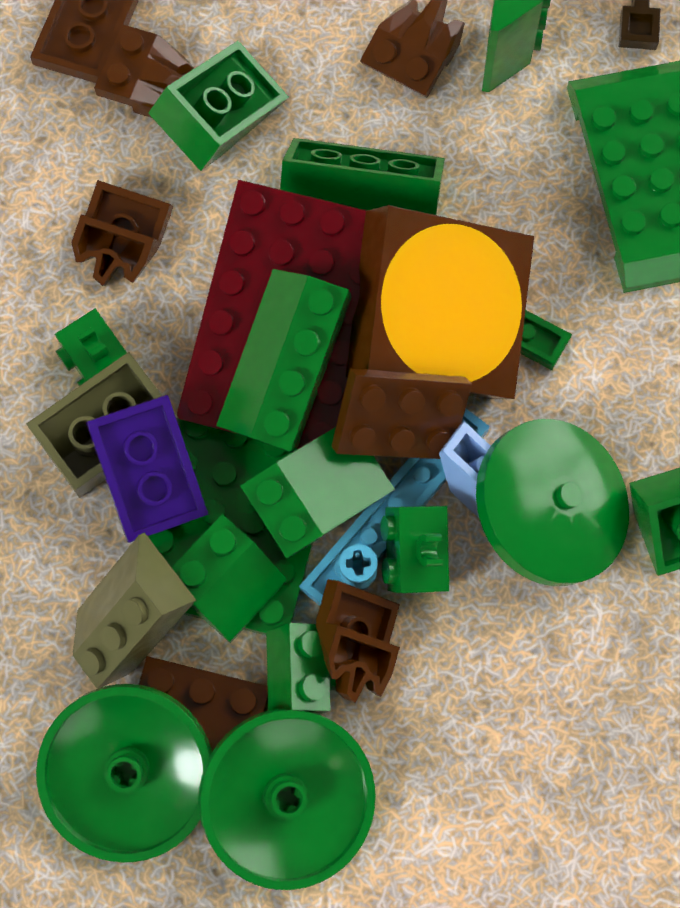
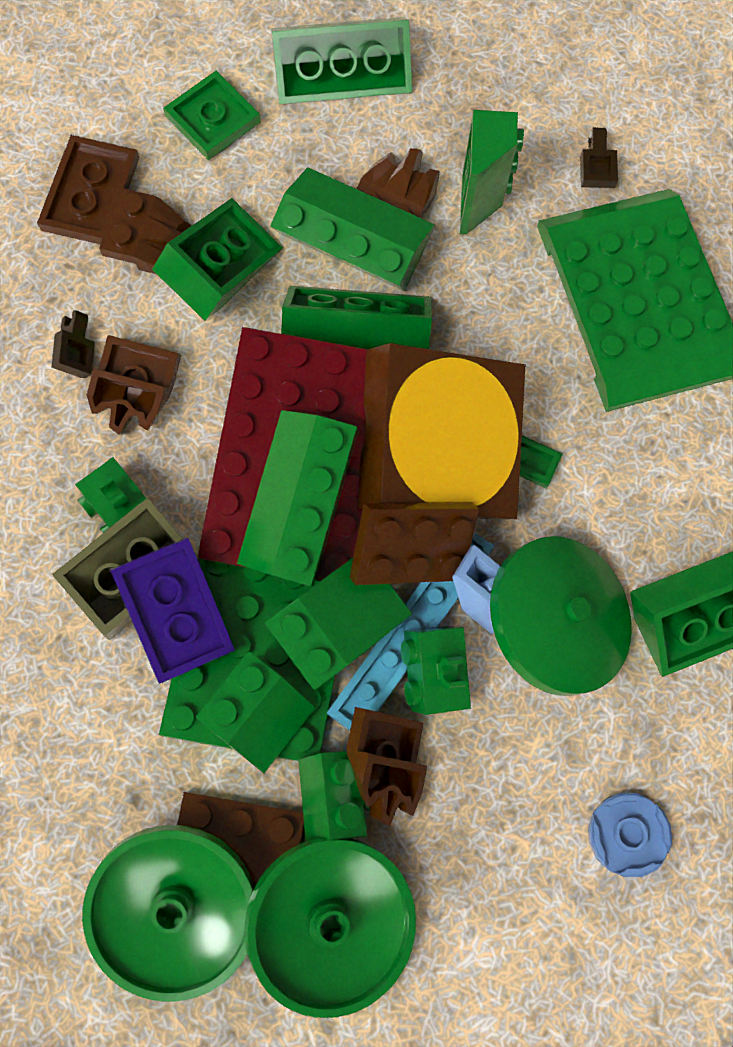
camera: 10 degrees left, 0 degrees up
(58, 192) = (71, 349): none -> dark brown plate
(128, 613) = (163, 754): olive slope -> none
(365, 79) = (352, 227): none -> green slope
(369, 562) = (391, 682): medium azure bush -> none
(595, 743) = (621, 843): none -> medium blue tile

